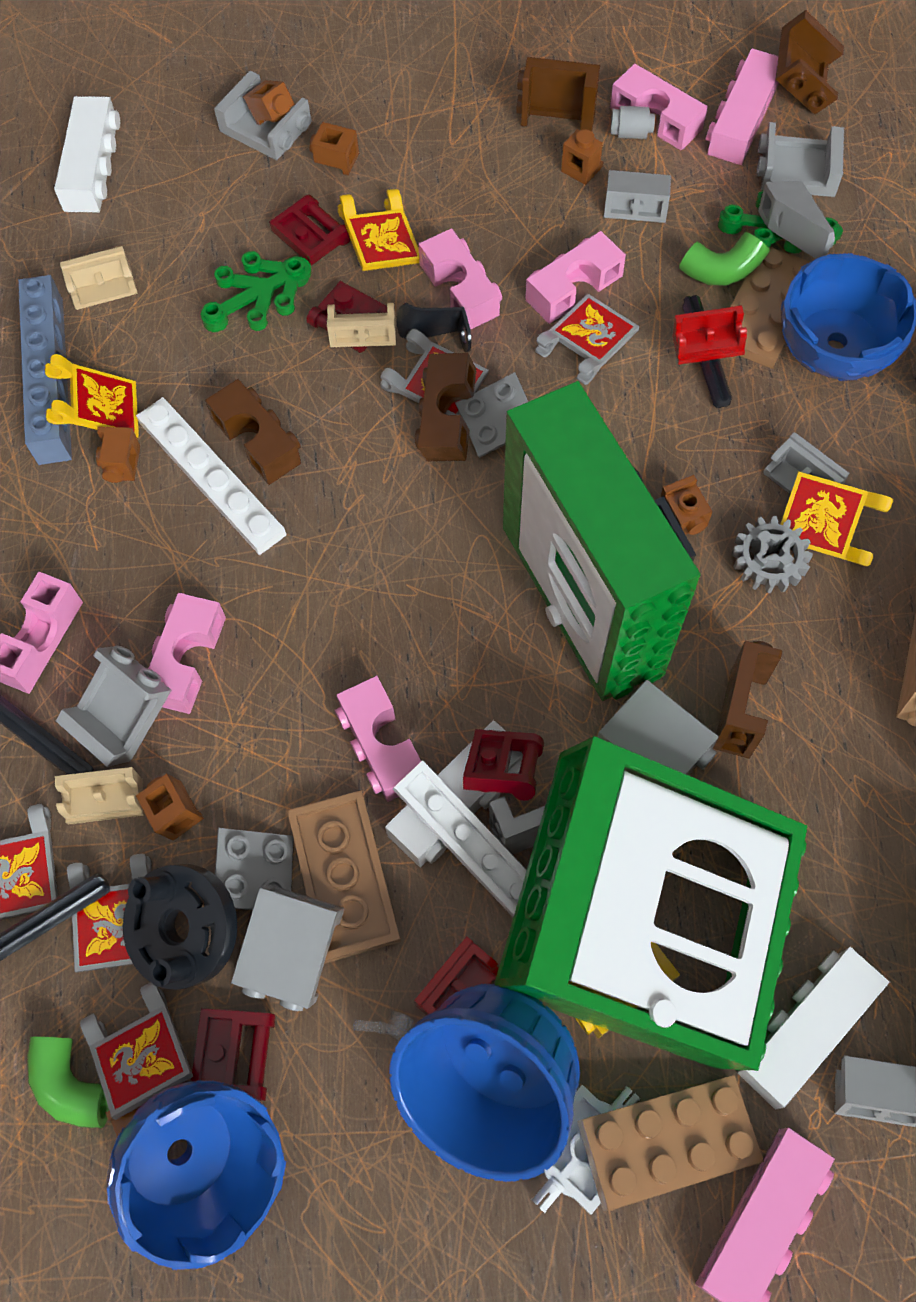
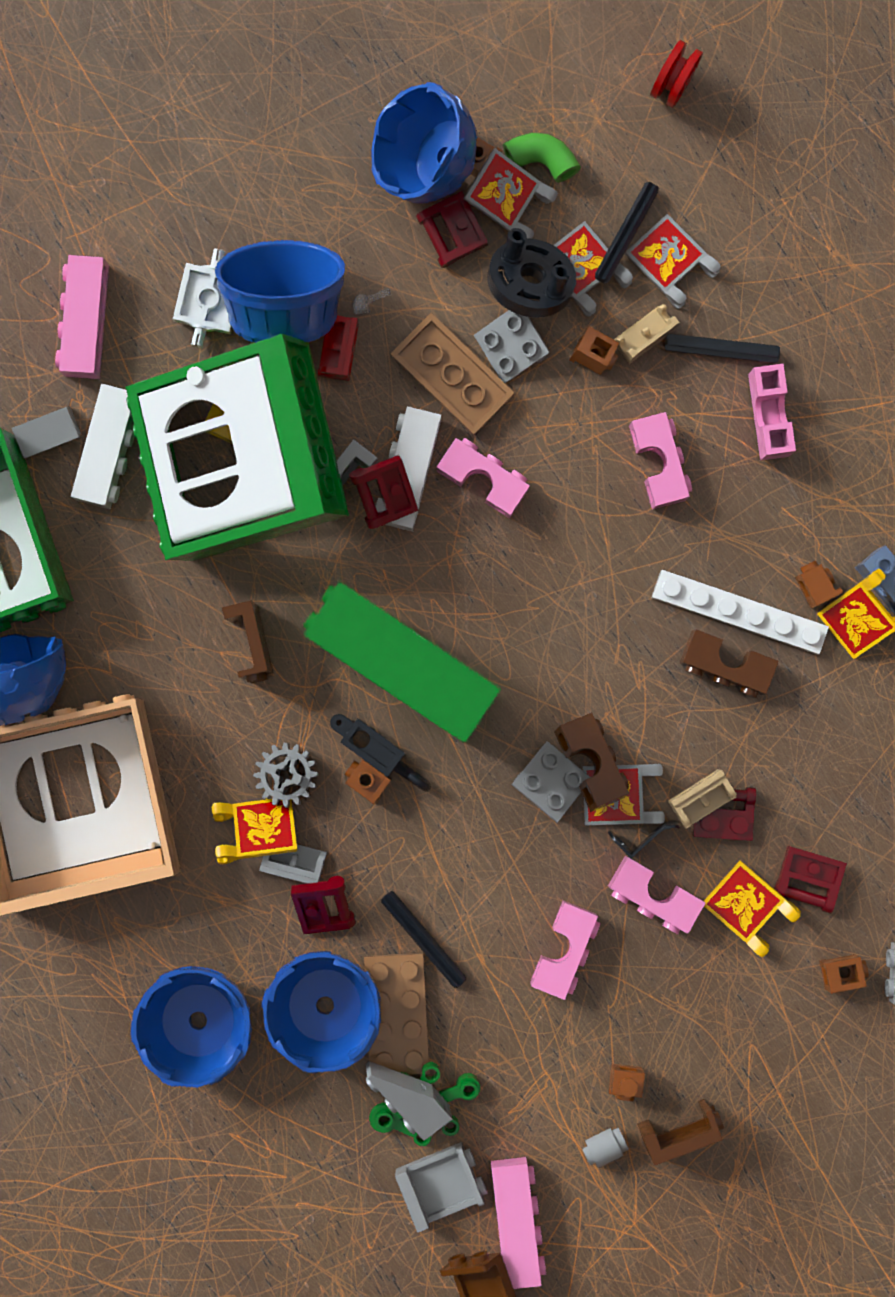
camera: 150 degrees right, 20 degrees up
(116, 707) = (675, 390): light grey panel -> none
(286, 947) = (457, 307): light grey panel -> none
(292, 272) = (811, 797): green plant -> none
(463, 834) = (386, 434): white plate -> none
(591, 332) = (524, 907): flag -> none
(637, 196) = (558, 1067): light grey hinge -> none
(660, 731) = (293, 580): light grey panel -> none
(669, 1142) = (160, 327): medium nougat plate -> none
(680, 114) = (616, 1187): bright pink arch -> none
(709, 335) = (423, 940): red hinge -> none
(724, 267) = (447, 1026): bright green cylinder -> none
(798, 413) = (313, 908): none -> dark red plate

